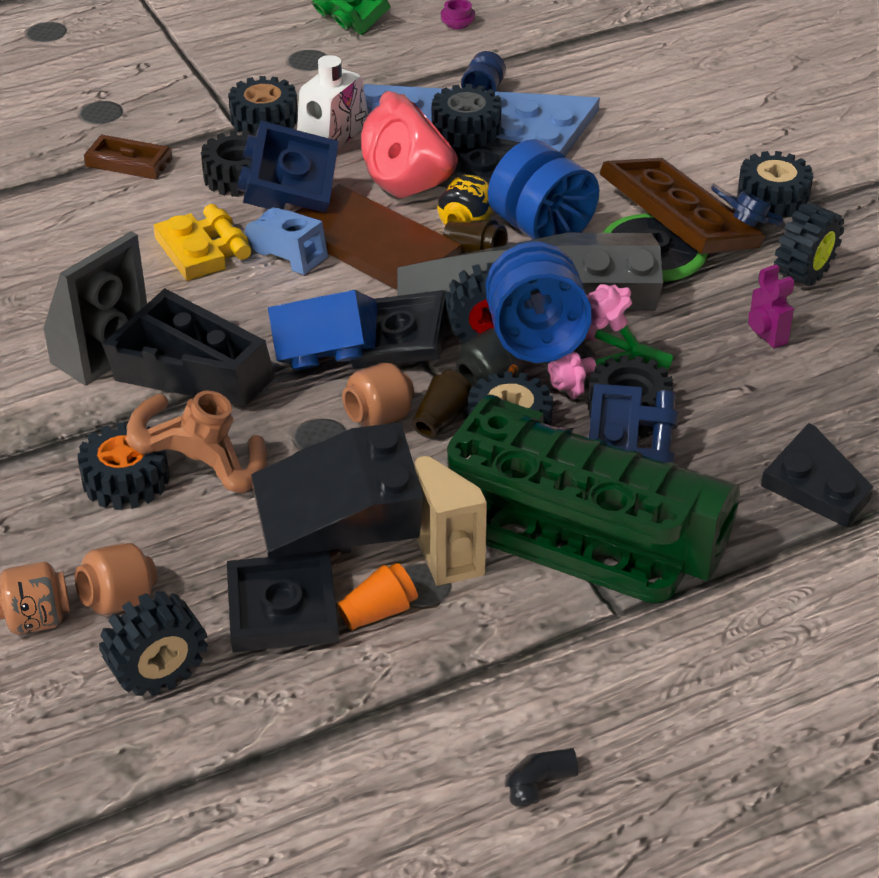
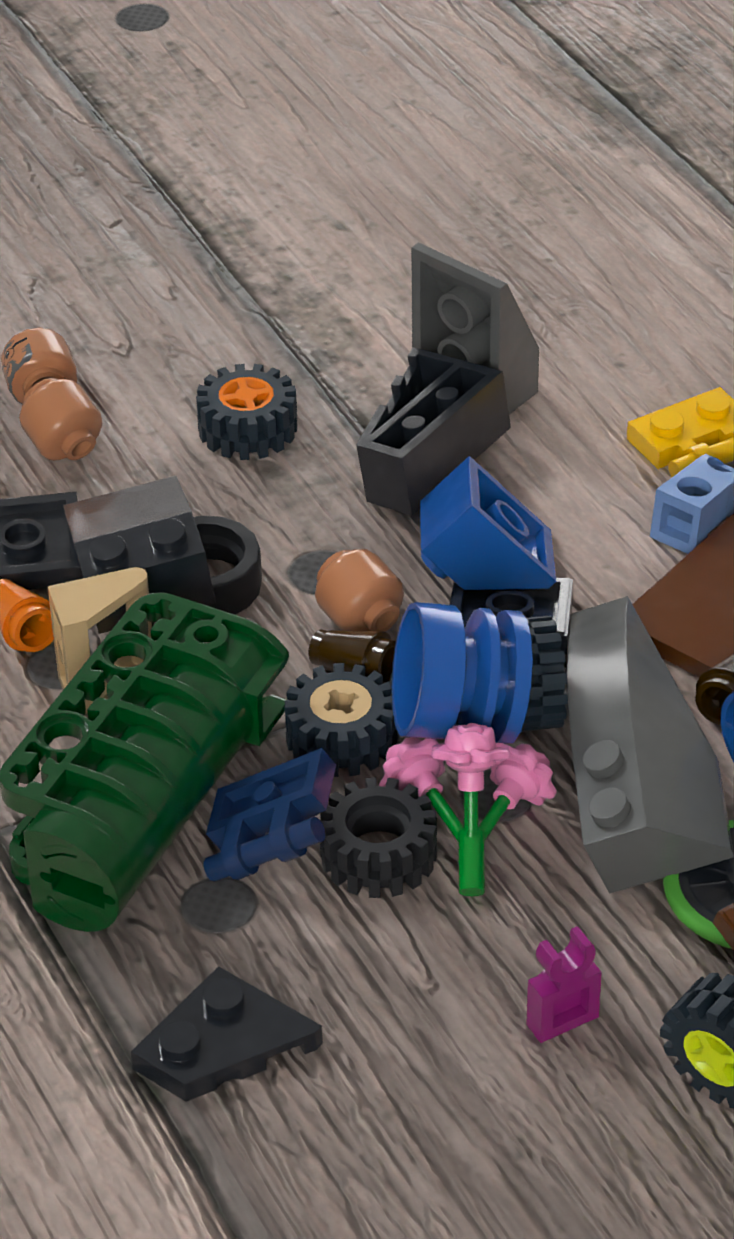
camera: 90 degrees right, 0 degrees up
(199, 435) = (264, 448): nougat piece -> none

